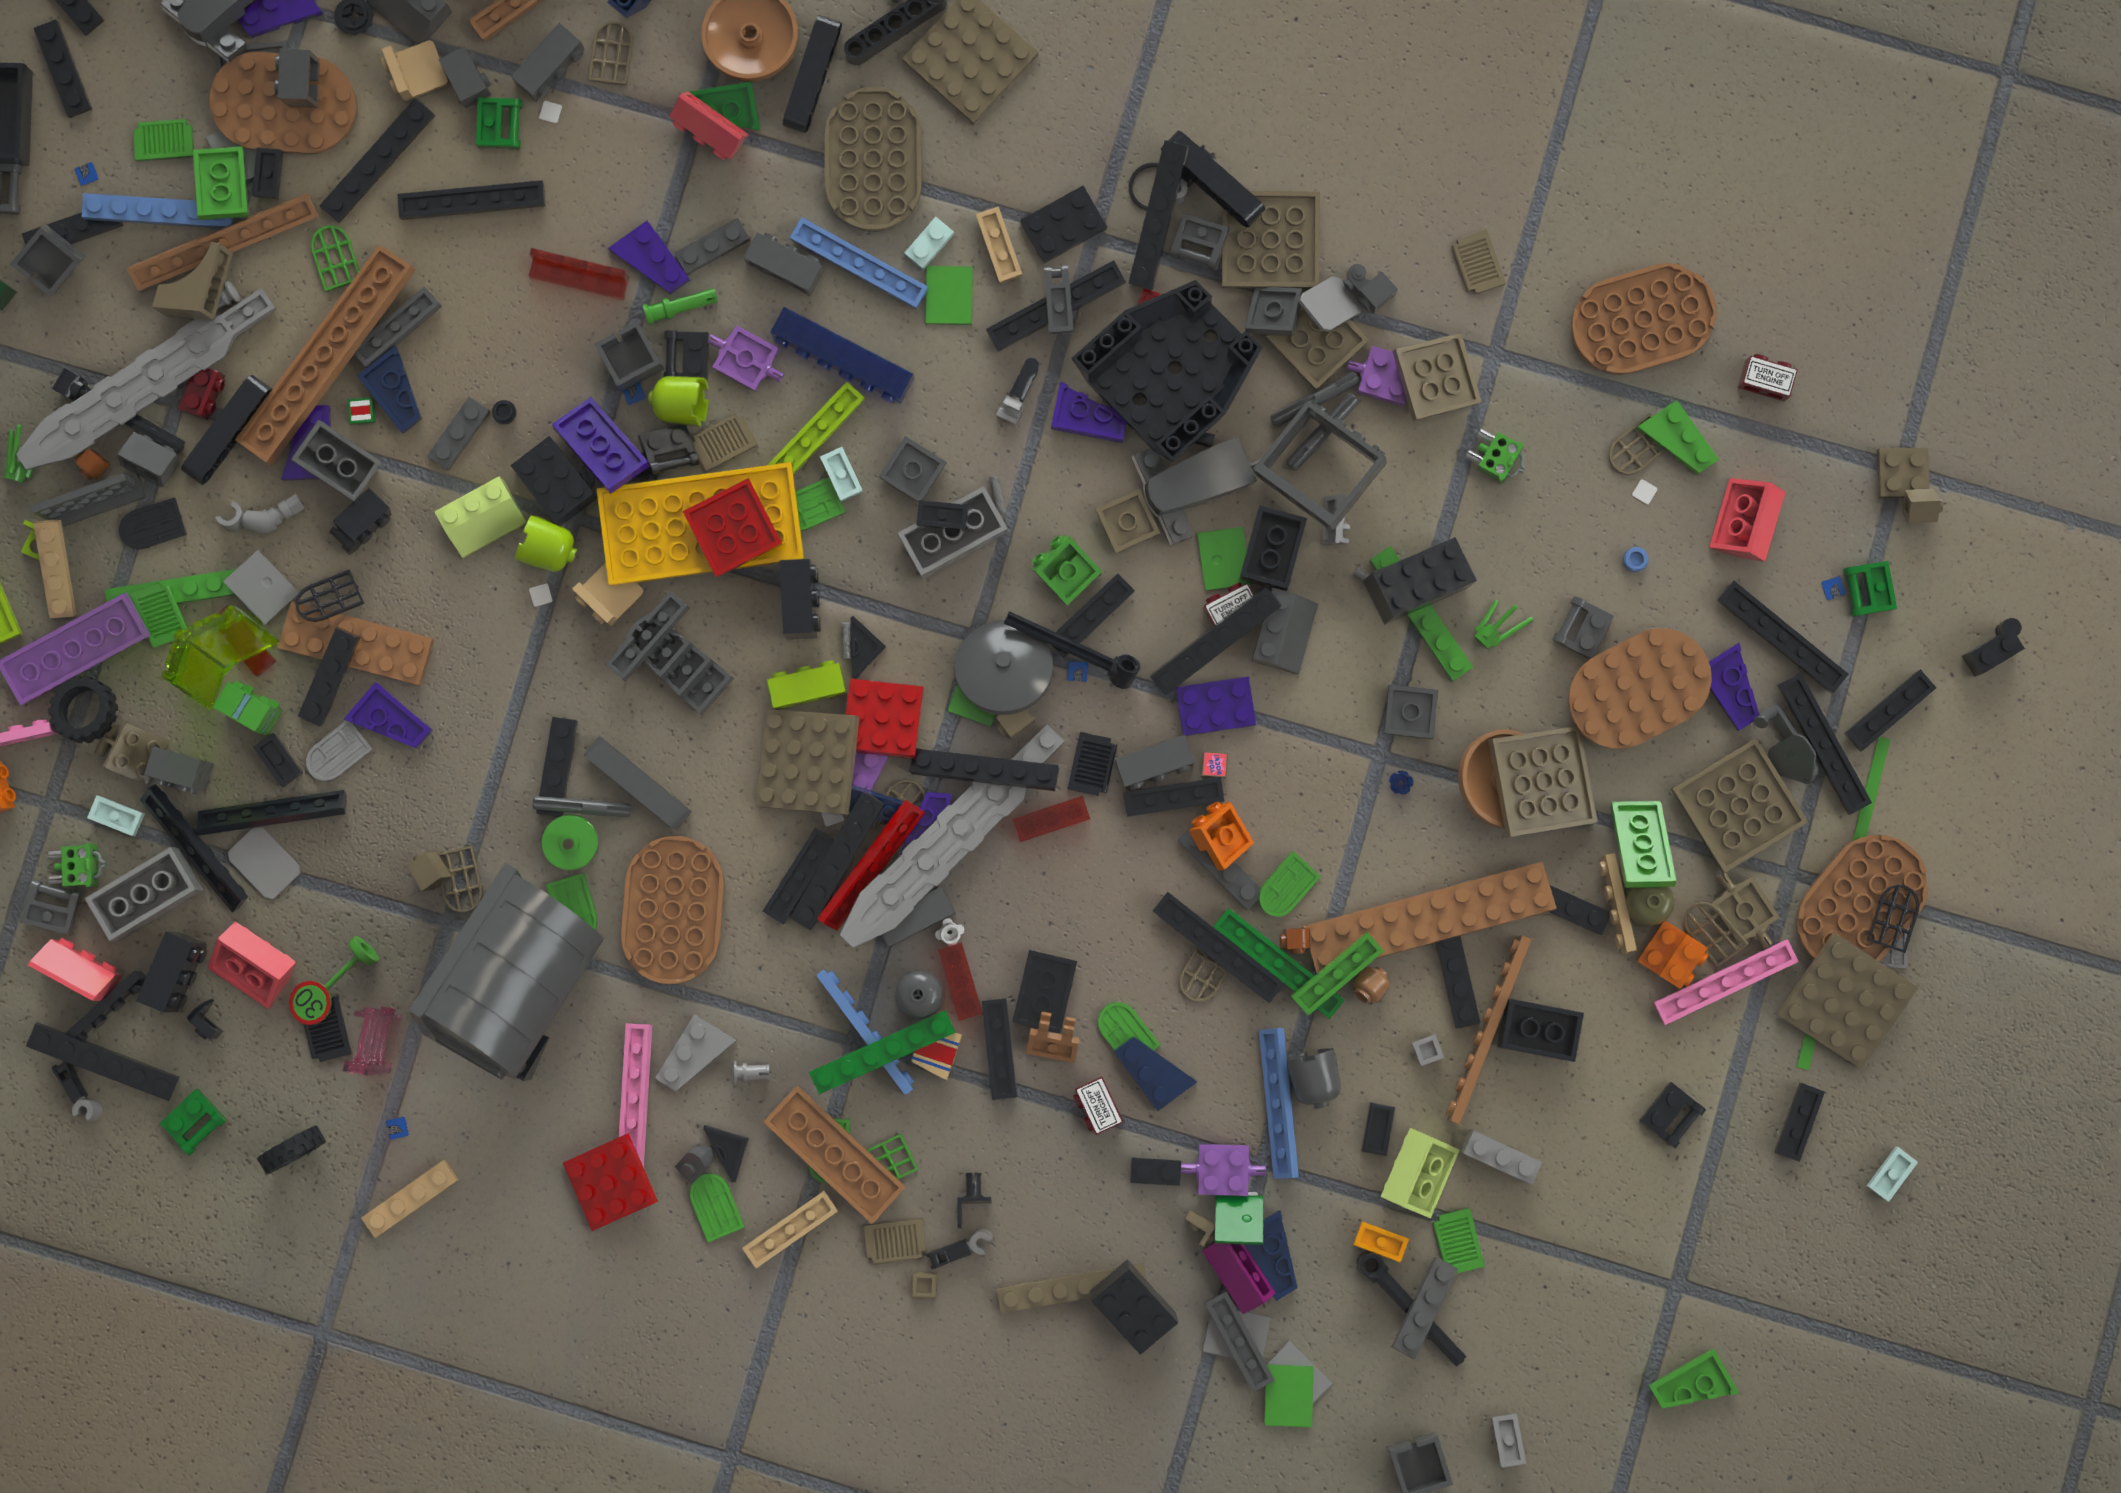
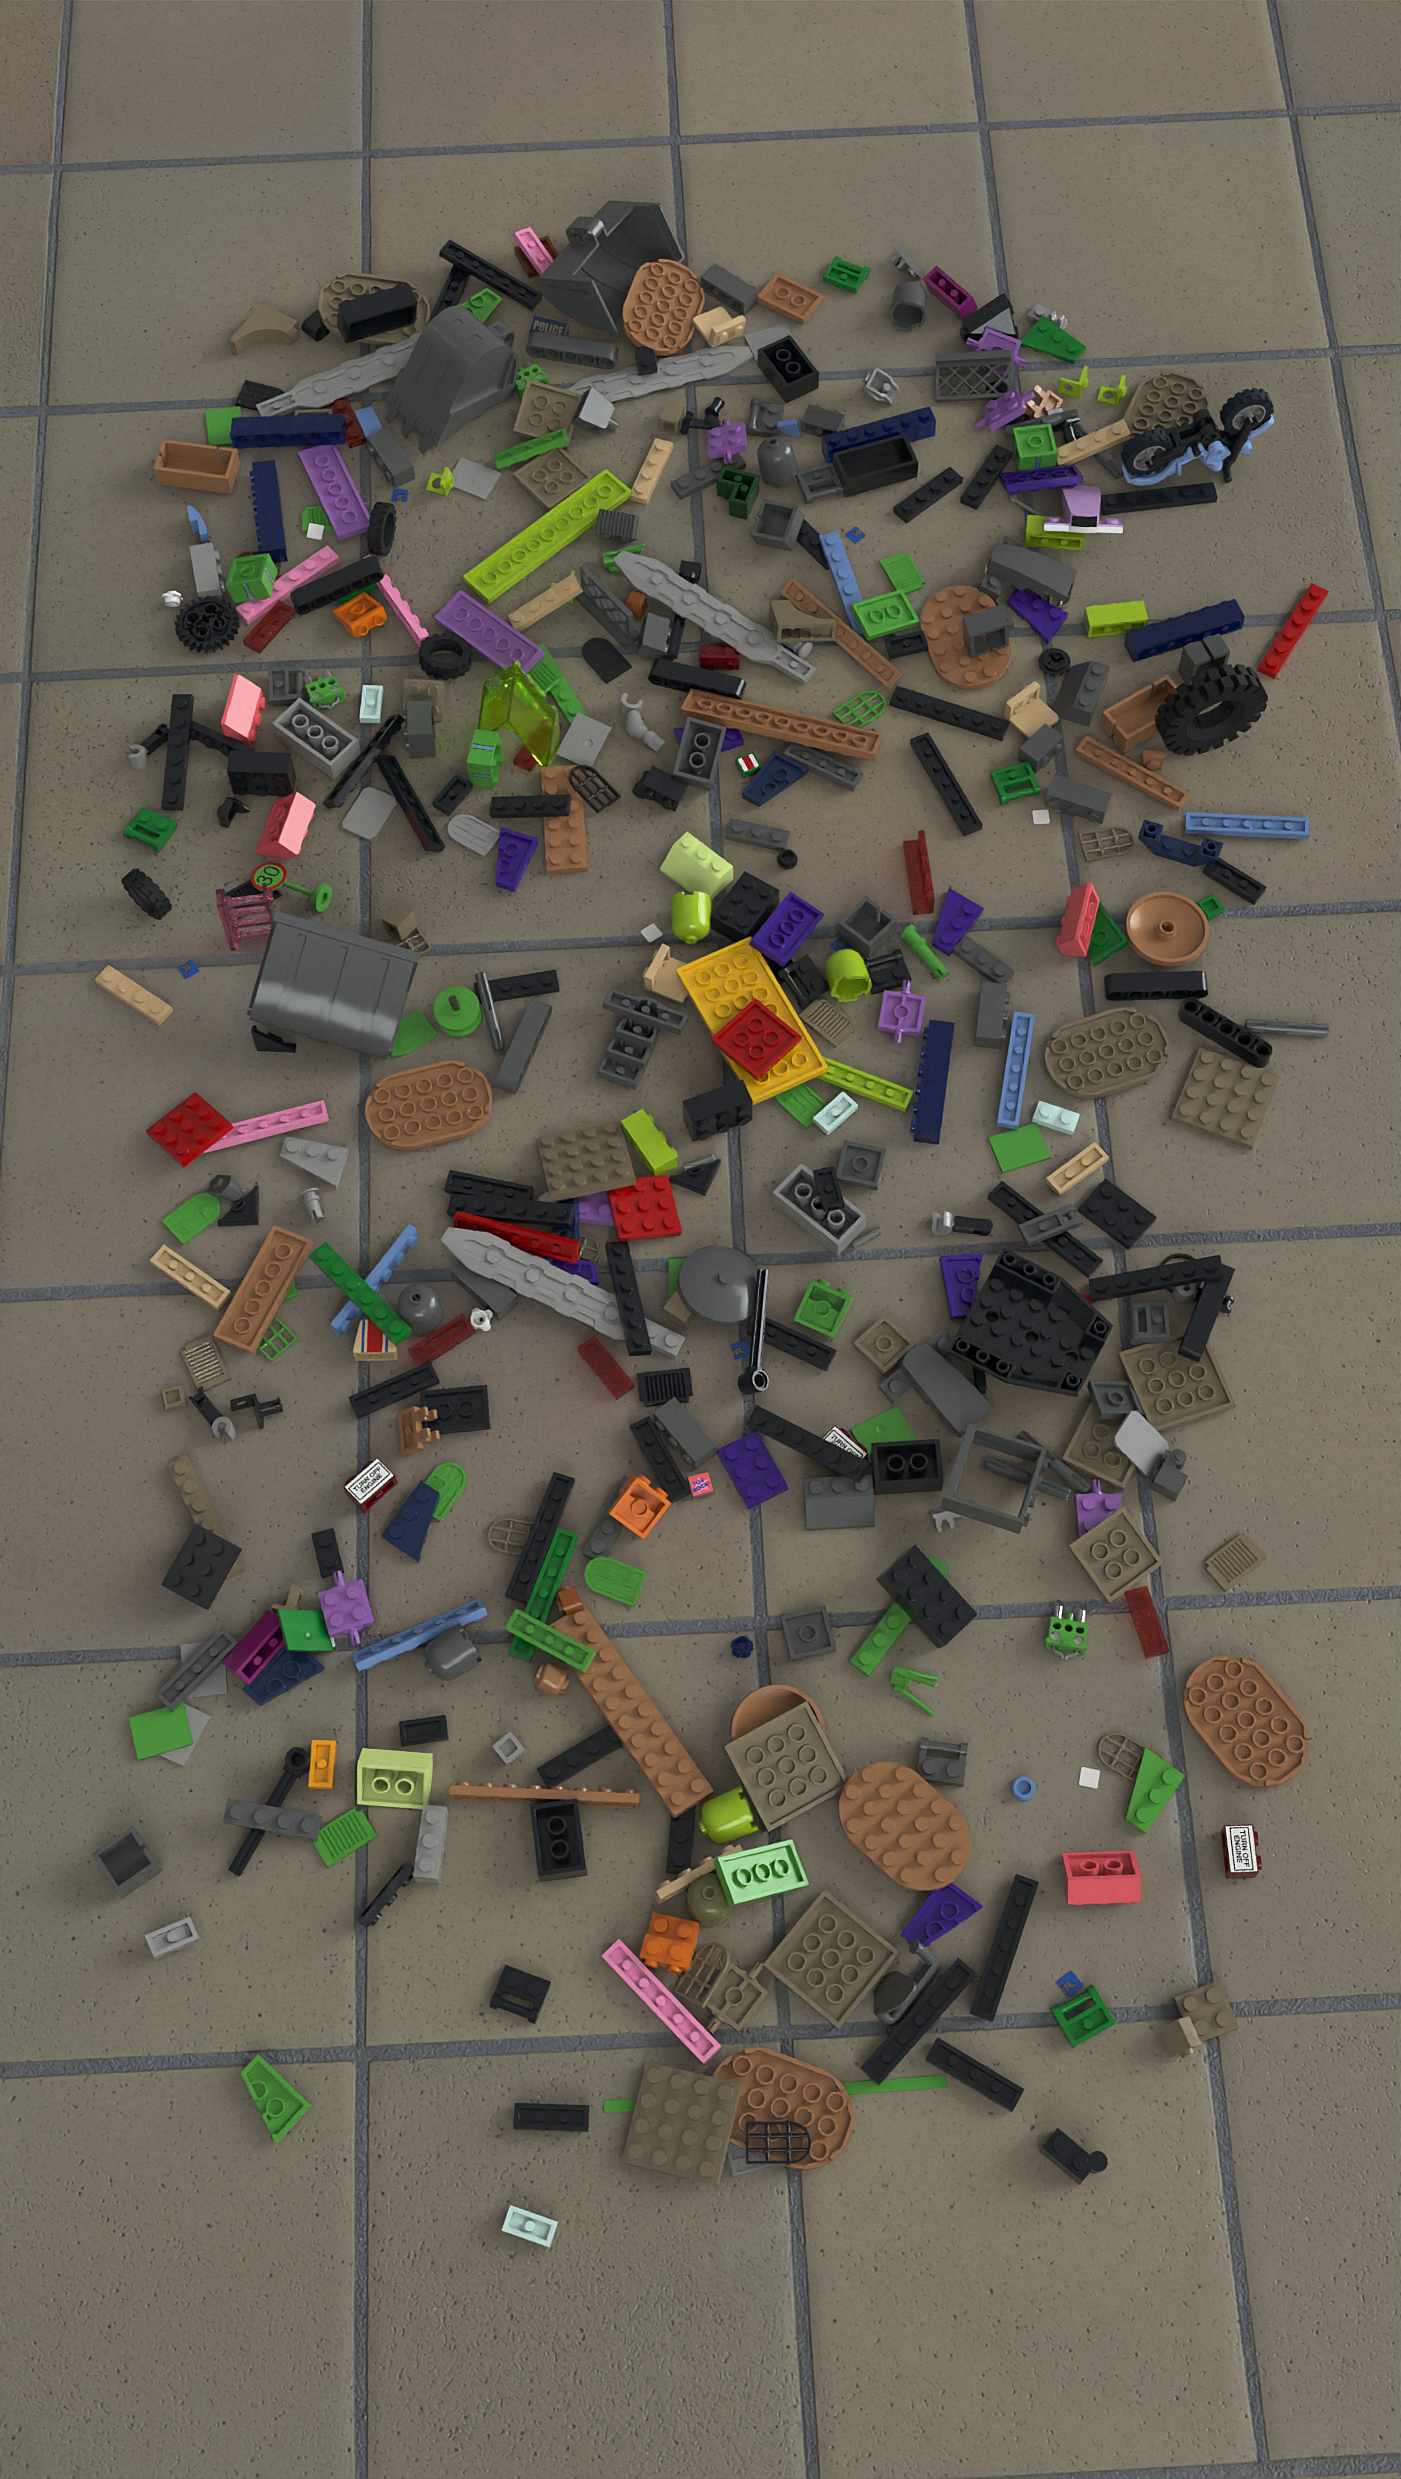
camera: 70 degrees right, 20 degrees down
(1513, 374) = (1146, 1622): none -> clear red plate
(1535, 1216) = (386, 1895): none -> black plate
(1573, 856) = (727, 1817): none -> lime cylinder

